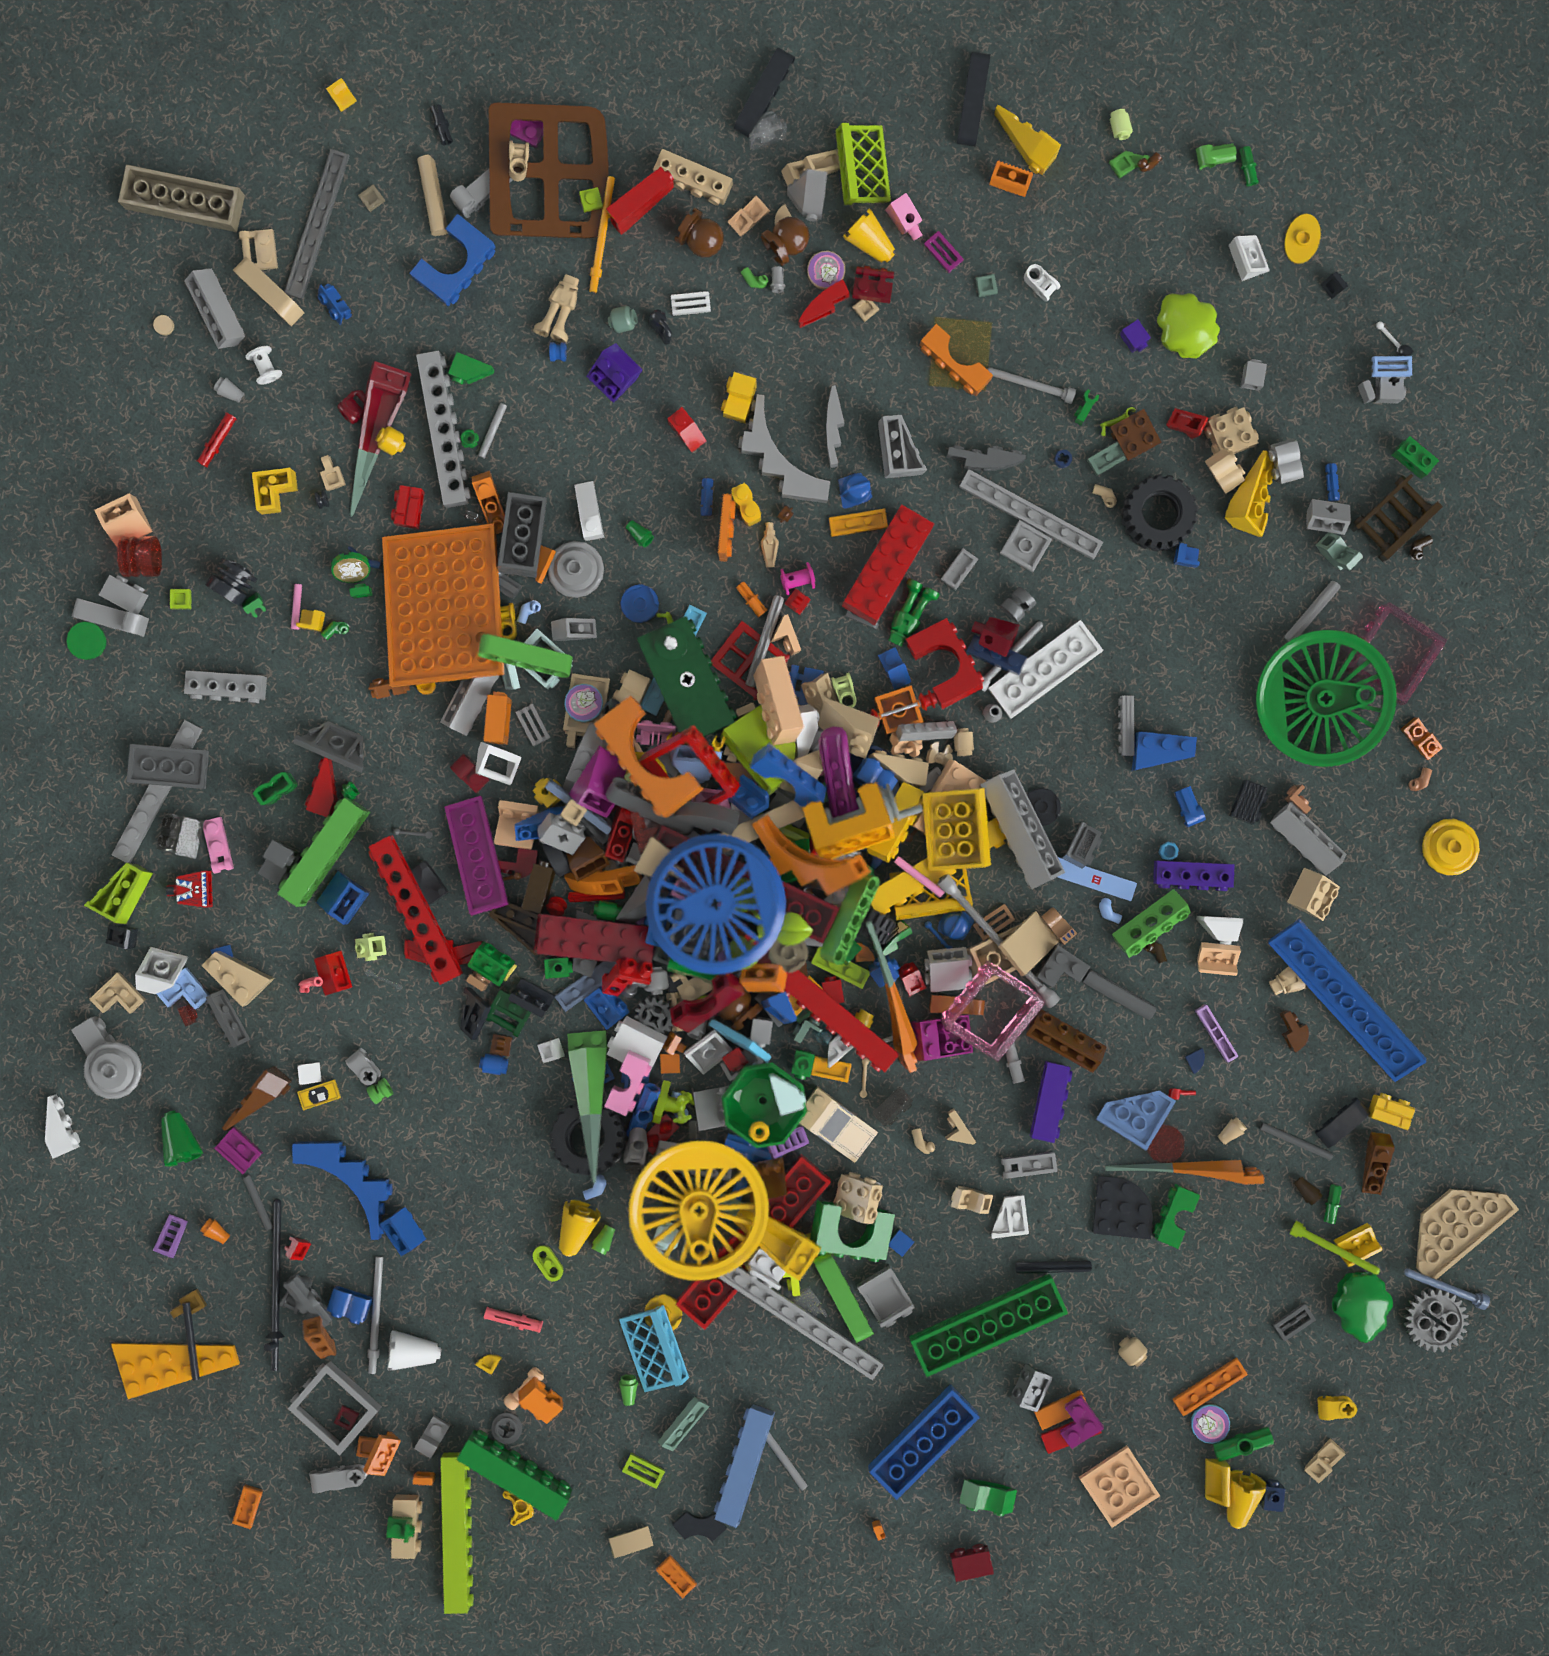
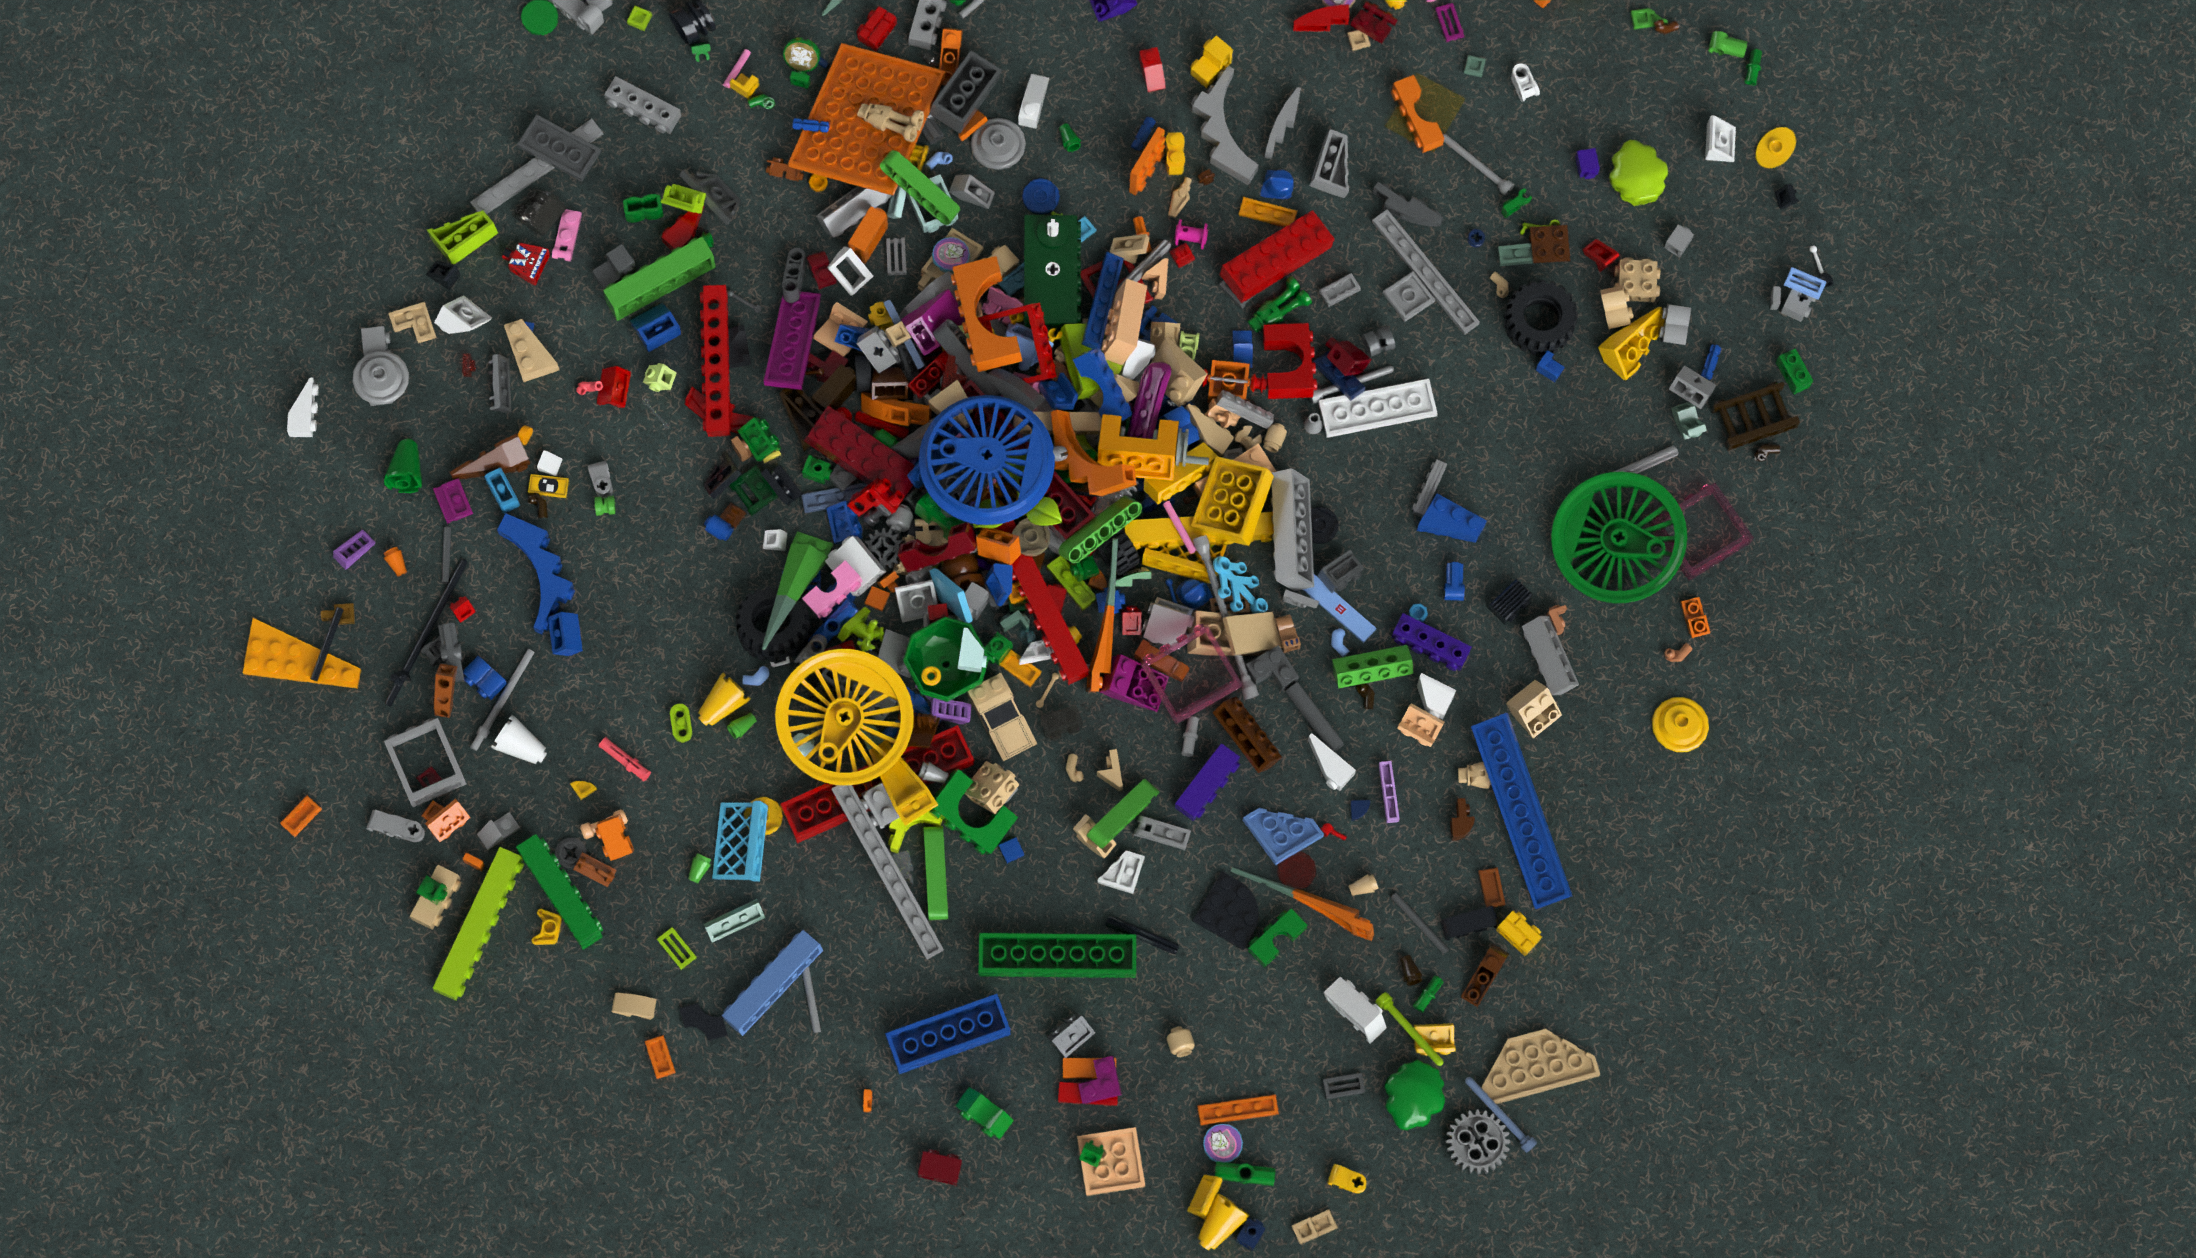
camera: 20 degrees right, 15 degrees down
(186, 986) = (476, 339): light blue plate -> none
(273, 1057) = (525, 434): none -> light orange tile
(278, 1122) = (502, 490): none -> dark azure brick
(309, 765) = (684, 198): none -> lime hinge
(320, 1115) = (541, 504): none -> dark brown arm
(392, 638) = (811, 125): none -> blue axle
(441, 784) = (793, 275): none -> dark grey beam
(455, 600) = (881, 116): none -> tan piece
(536, 1434) = (595, 869): none -> dark orange hinge
(746, 618) = (1130, 247): none -> tan slope
(747, 686) = (1102, 300): none -> blue tile
(780, 864) = (1059, 453): none -> light grey hinge
(799, 1216) = (932, 773): none -> light grey cone
(886, 1296) = (974, 890): light grey panel -> none
(976, 897) = (1224, 567): none -> medium azure plant
(989, 1170) = (1122, 813): none -> bright green beam
(1057, 889) = (1299, 600): none -> light grey tile
(1102, 1494) = (1091, 1154): none -> green tile
(1156, 1034) = (1333, 767): none -> white slope
(1275, 1250) = (1356, 1008): none -> white wedge
(1346, 1079) = (1491, 887): none -> dark orange tile

